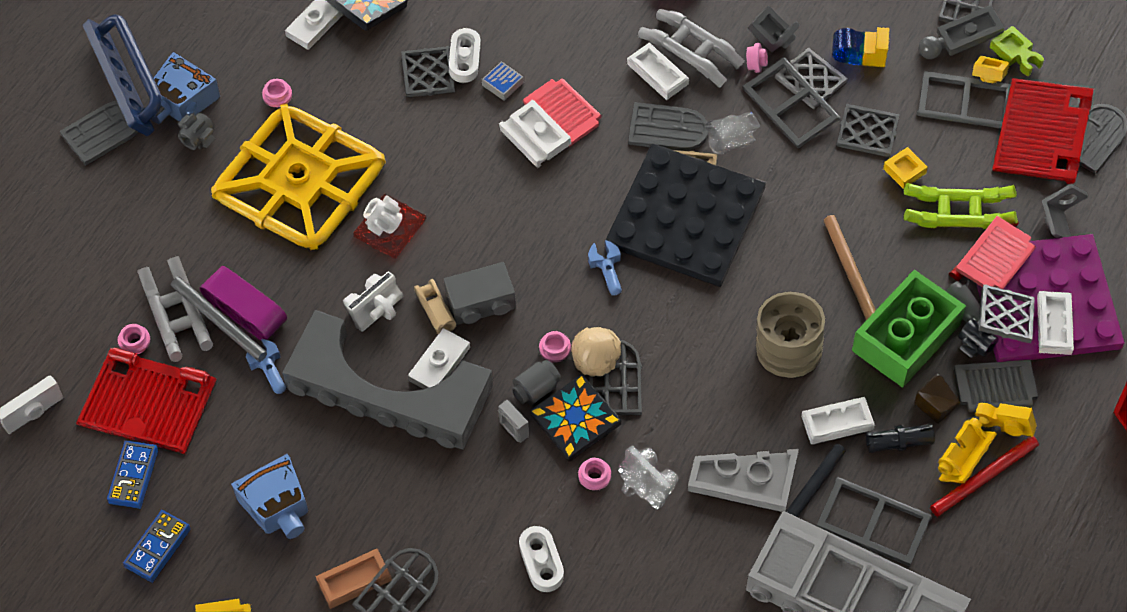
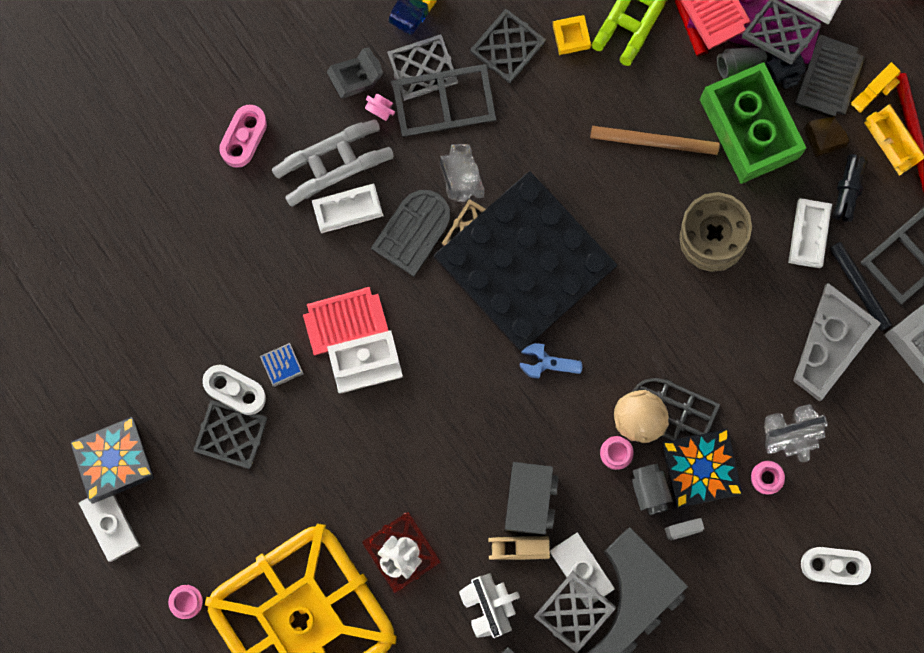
camera: 65 degrees left, 20 degrees up
(404, 347) = (558, 631): none -> light grey window

